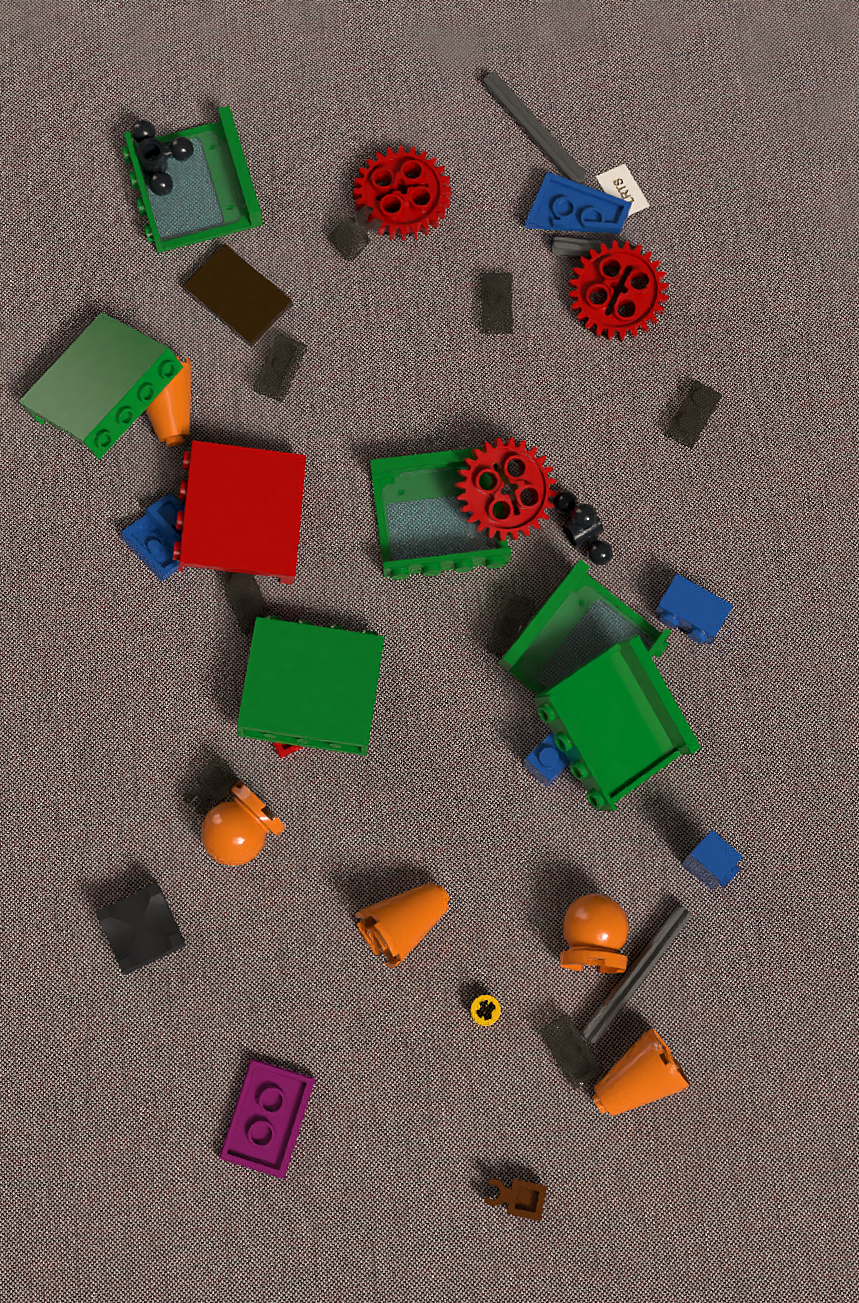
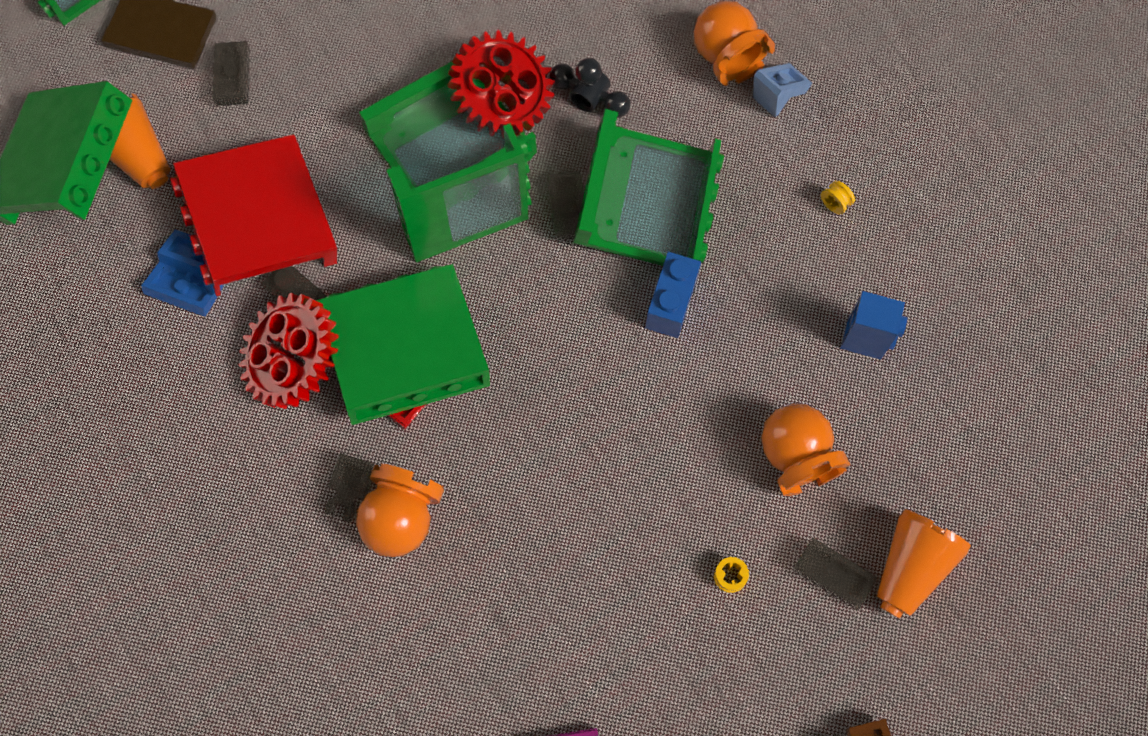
camera: 25 degrees left, 5 degrees down
(140, 928) = (341, 663): black brick -> none
(231, 639) = (301, 329): none -> red gear
(402, 921) = (605, 527): orange cone -> none
(417, 594) = (464, 202): none -> green panel
(616, 721) = (716, 238): green panel -> none
(636, 974) = (856, 473): dark grey axle -> none
(693, 610) = (729, 116): blue brick -> none
(729, 538) = (731, 42): none -> orange tile
(749, 729) = (837, 197): none -> yellow bush
(754, 602) = (777, 85): none -> medium blue slope

